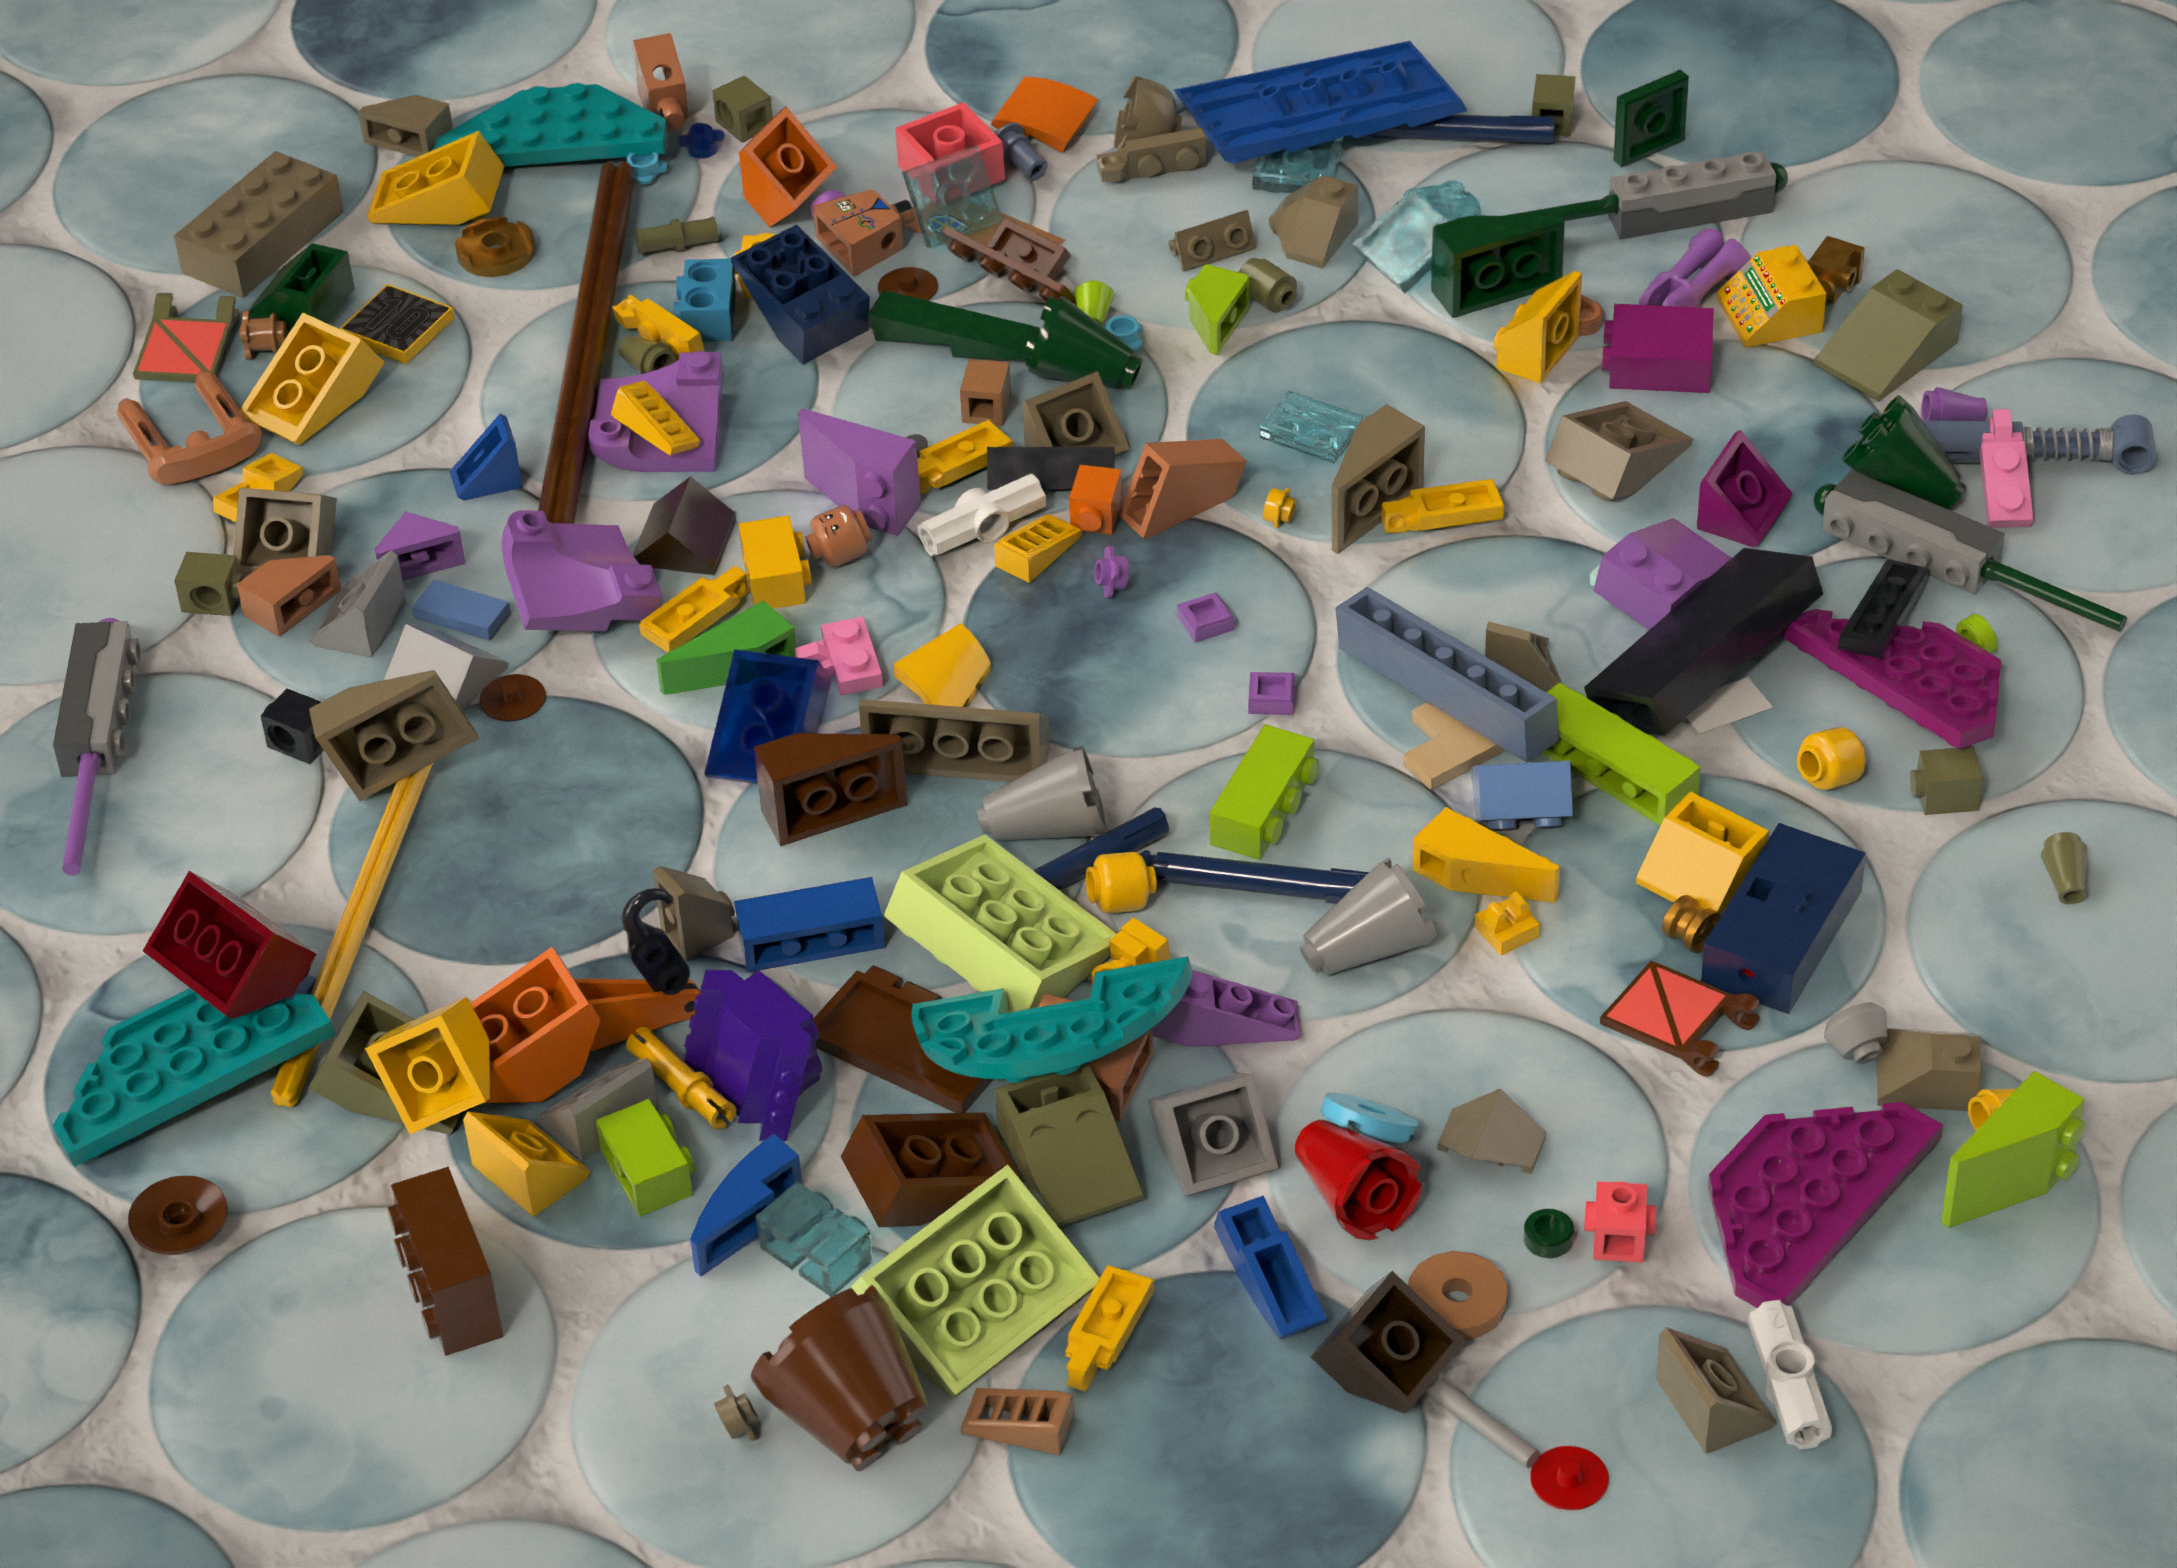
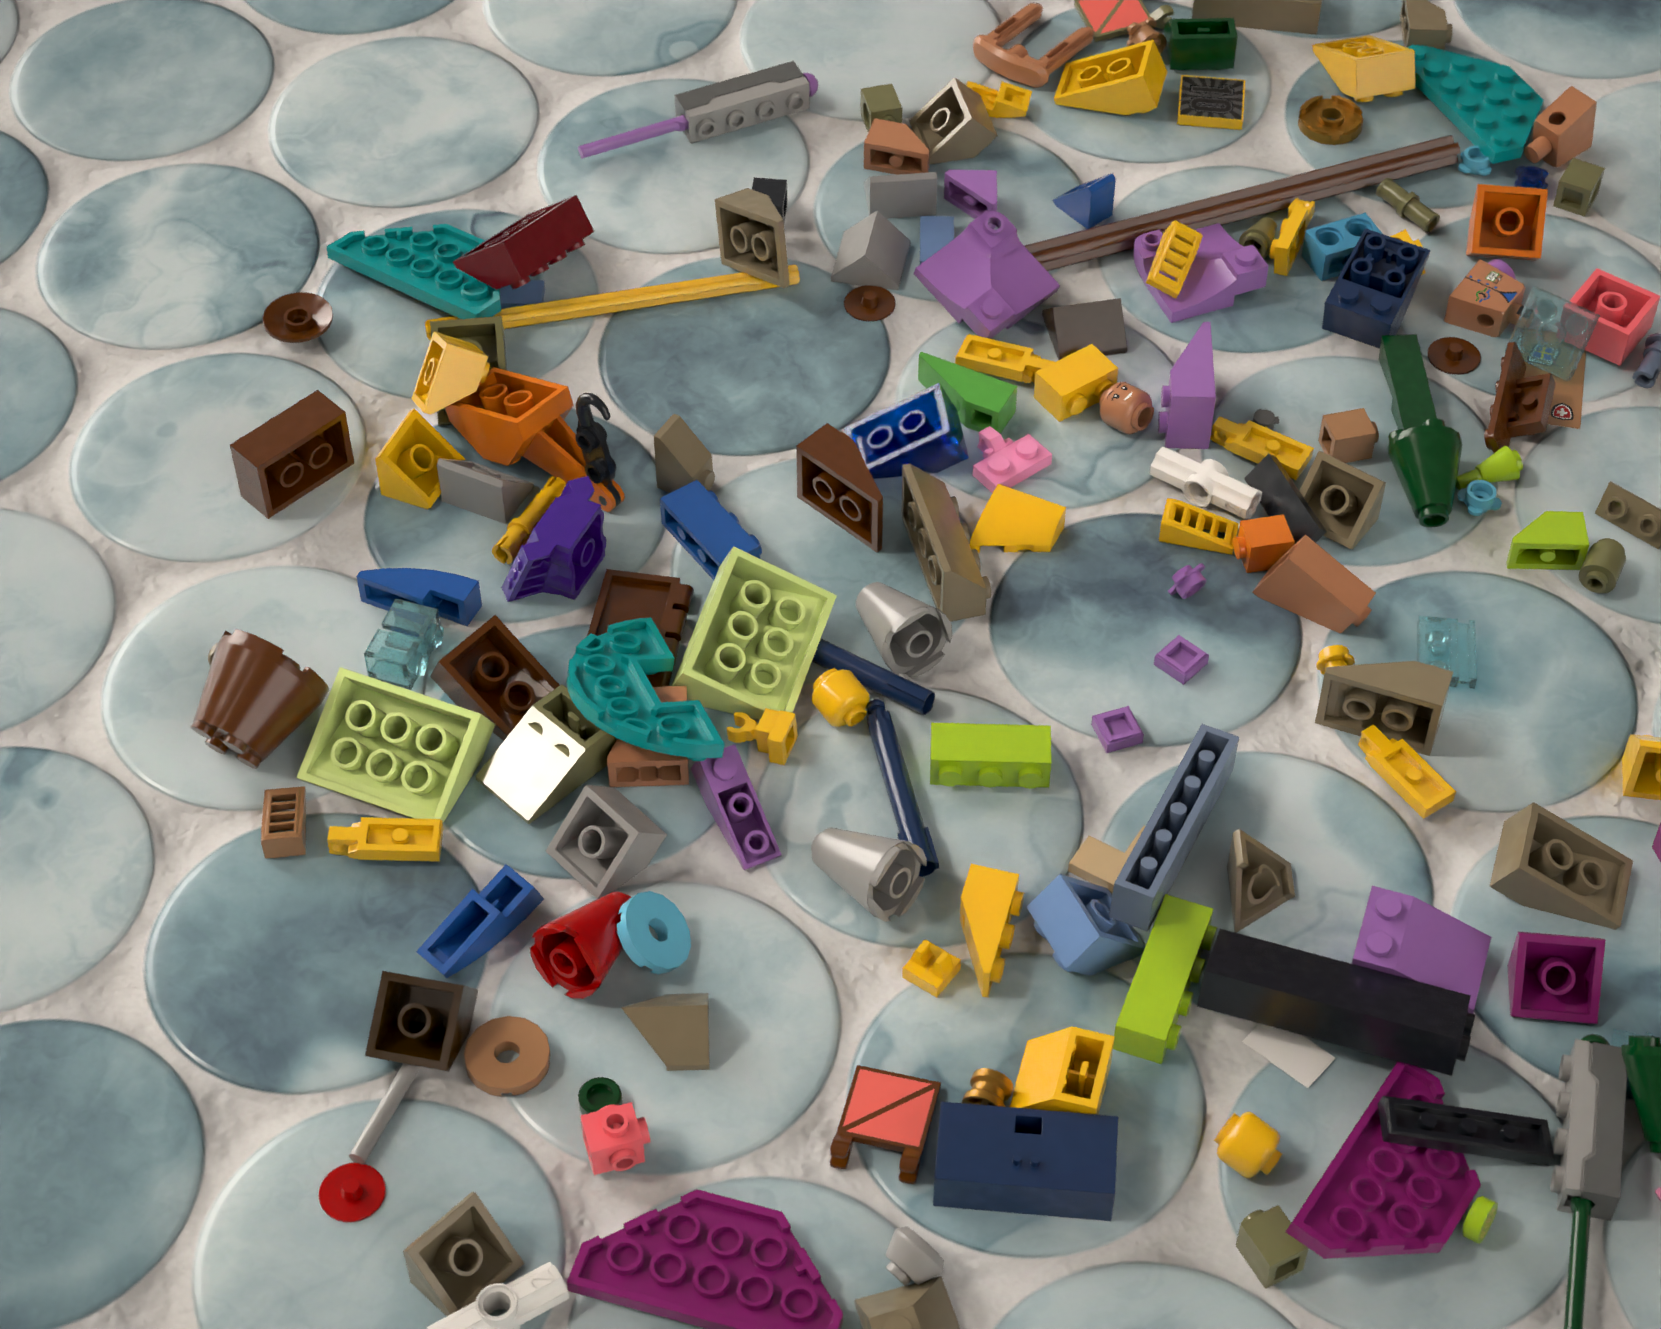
camera: 65 degrees right, 5 degrees up
(646, 1157) = (443, 526): lime brick -> none

